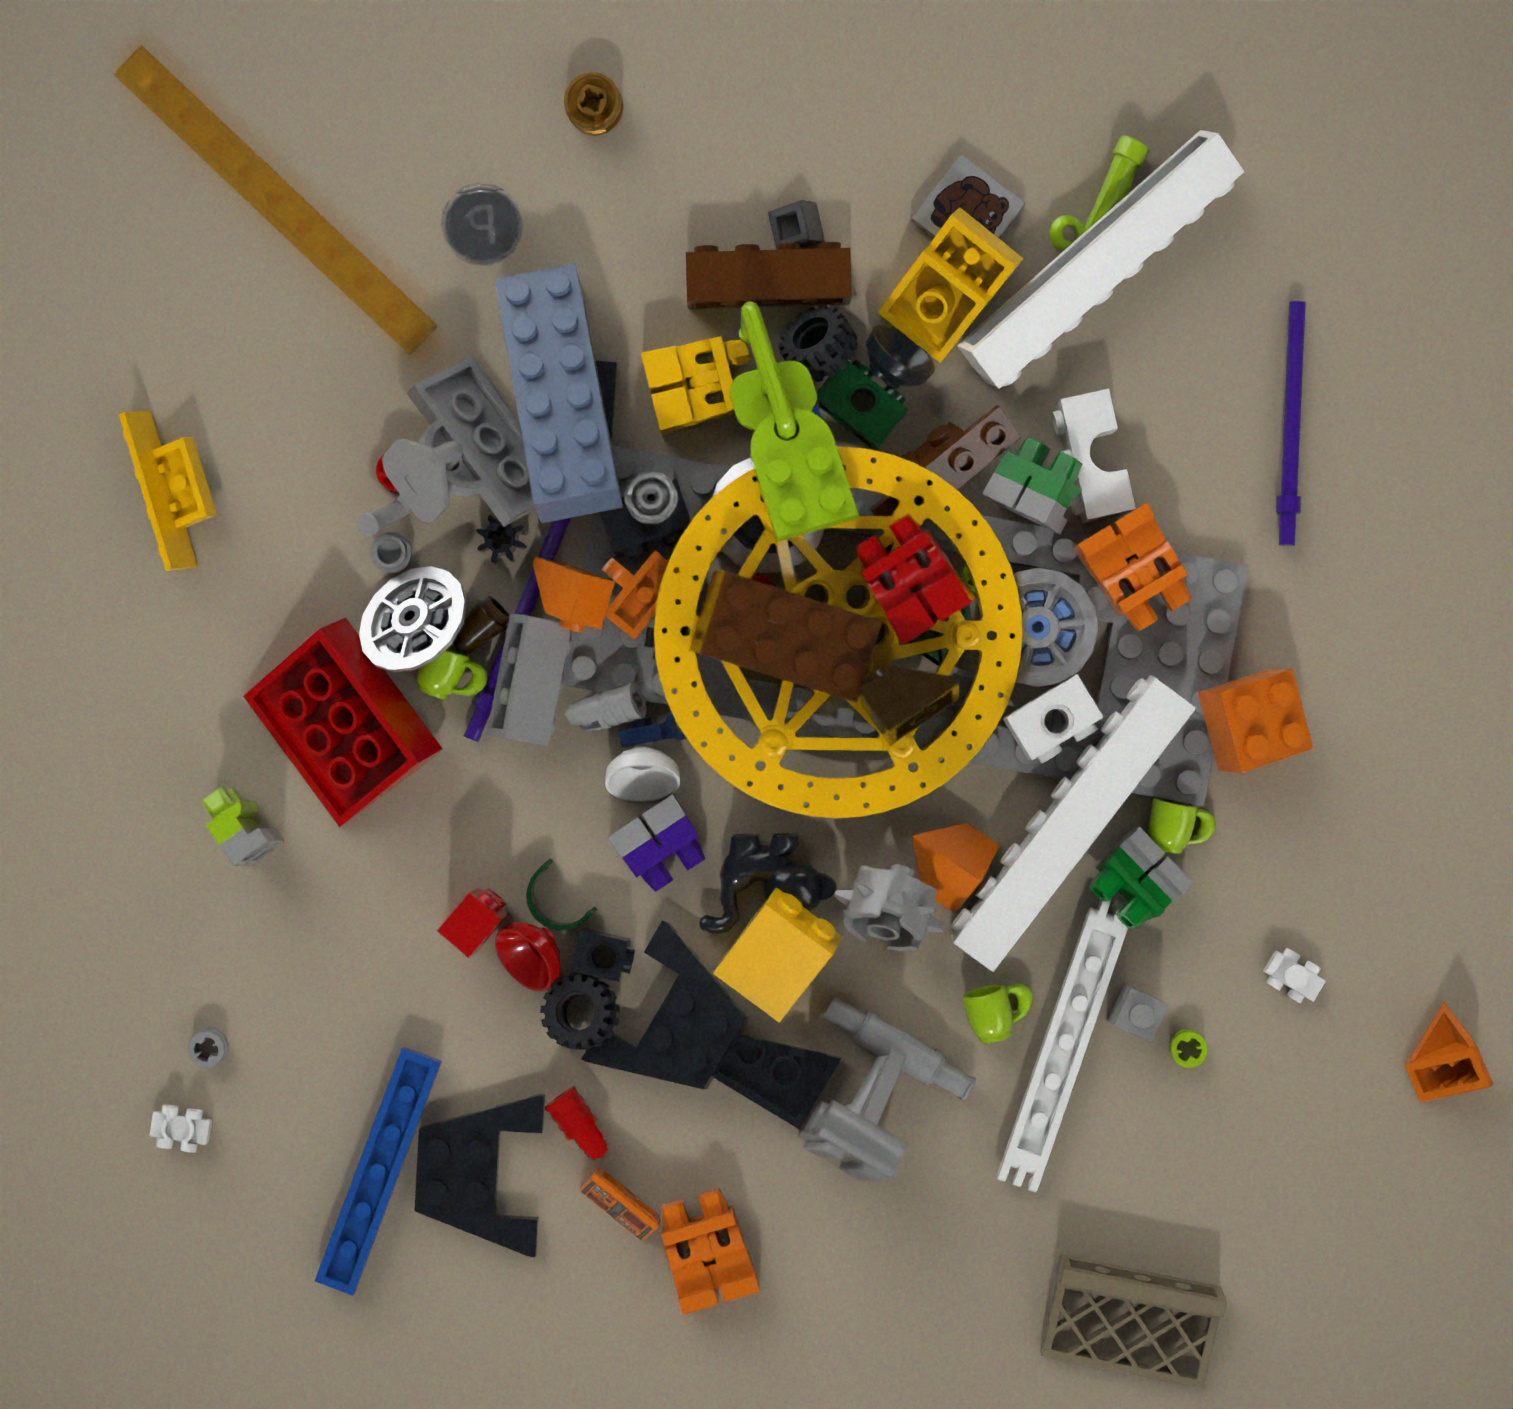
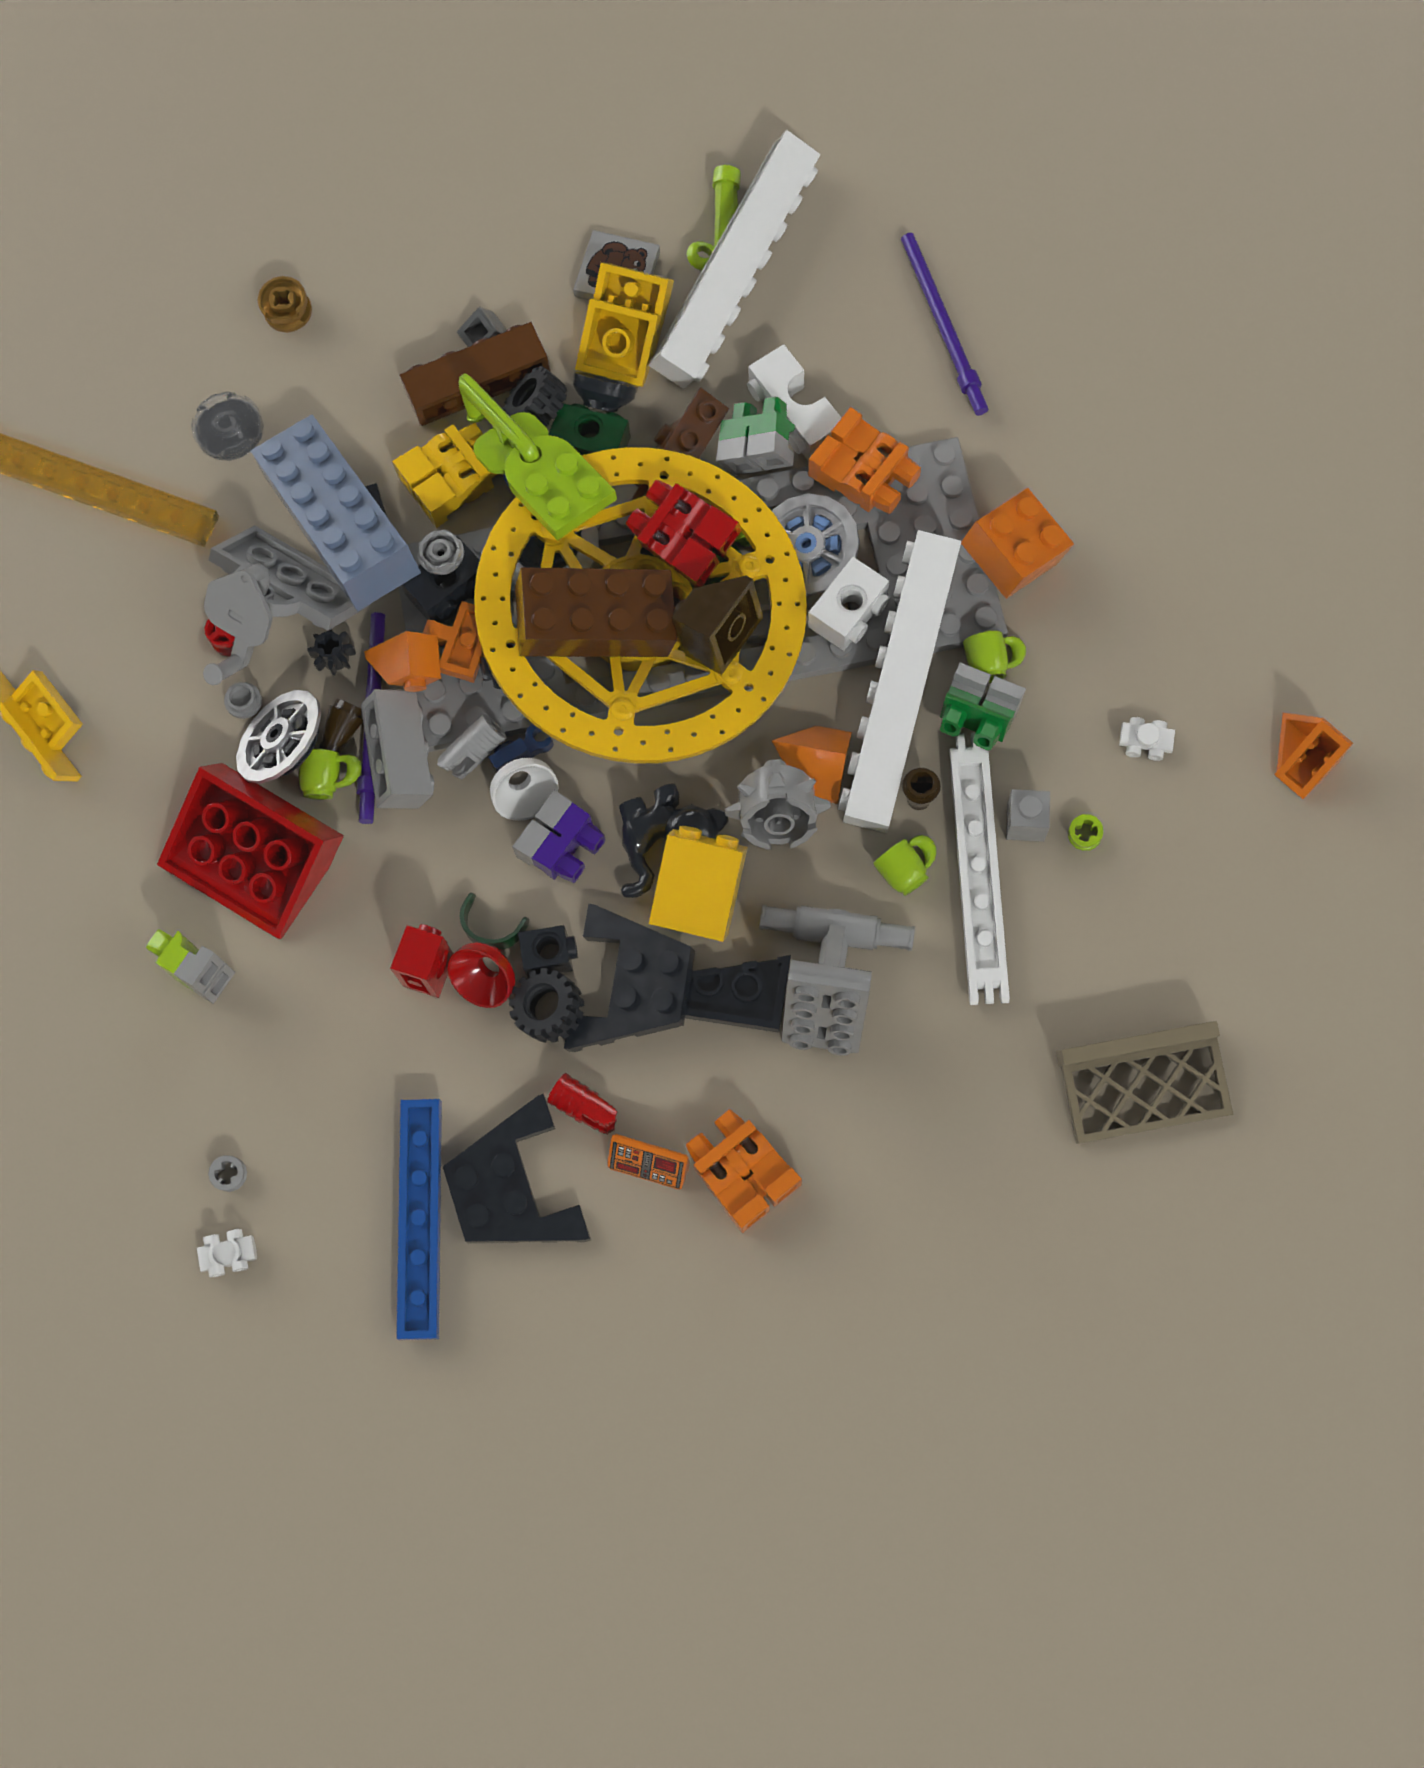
camera: 15 degrees left, 15 degrees down
(1052, 950) = (921, 781): none -> dark brown cone

